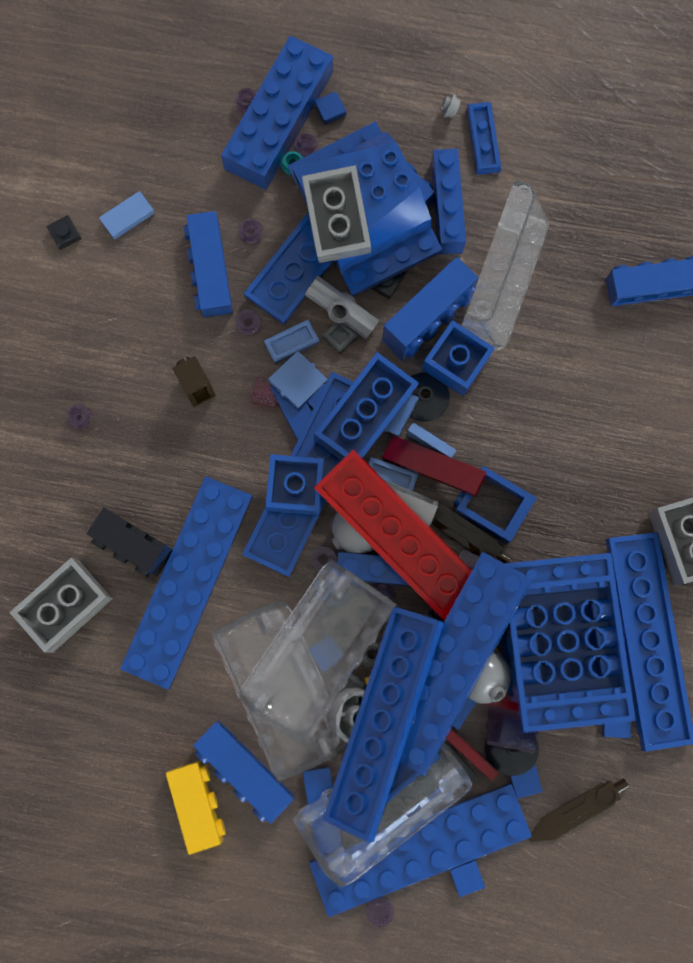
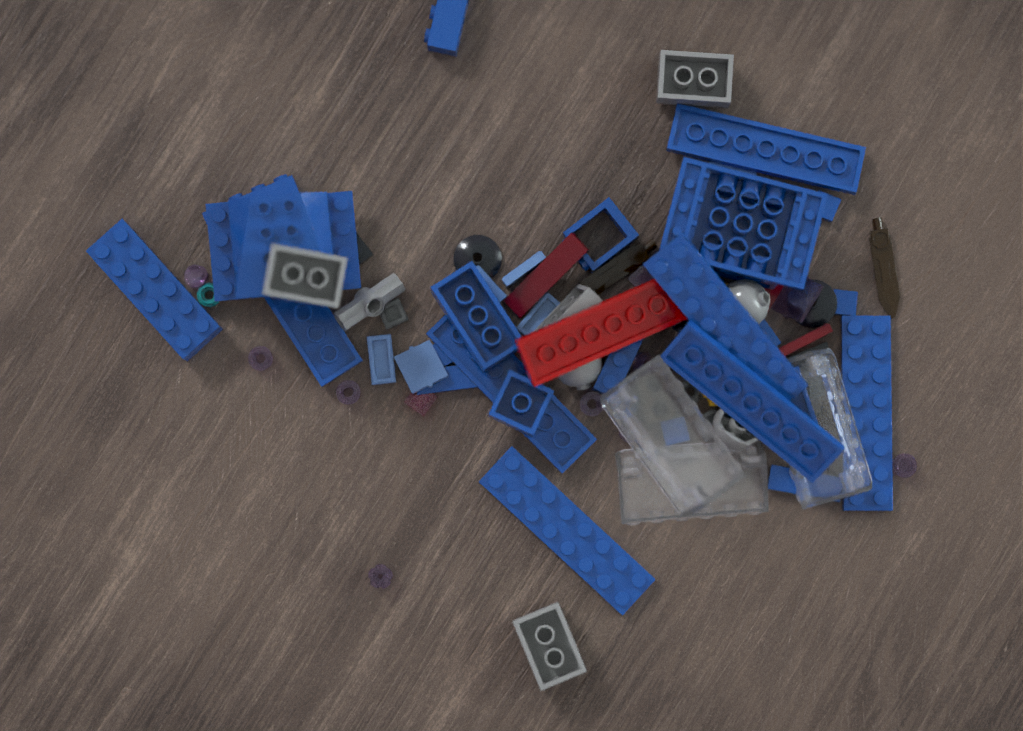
camera: 65 degrees left, 5 degrees up
(63, 232) = (195, 532): black plate -> none
(126, 215) = (201, 468): medium blue tile -> none
(129, 543) = (515, 569): black wedge -> none
(193, 380) = (389, 460): dark brown brick -> none
(195, 807) = (762, 588): yellow brick -> none
(209, 264) = (280, 407): blue brick -> none
(243, 95) = (120, 315): clear purple plate -> none
(244, 772) = (748, 538): blue brick -> none
(330, 108) = (165, 239): blue tile -> none
(430, 309) = (403, 224): blue brick -> none
(448, 201) = (303, 166): blue brick -> none
(450, 106) = (208, 126): light grey plate -> none
(457, 358) = (457, 215): blue brick -> none
(467, 878) = (904, 382): blue tile -> none
(483, 138) = (250, 107): blue tile -> none
(508, 267) = (391, 138): clear windscreen -> none

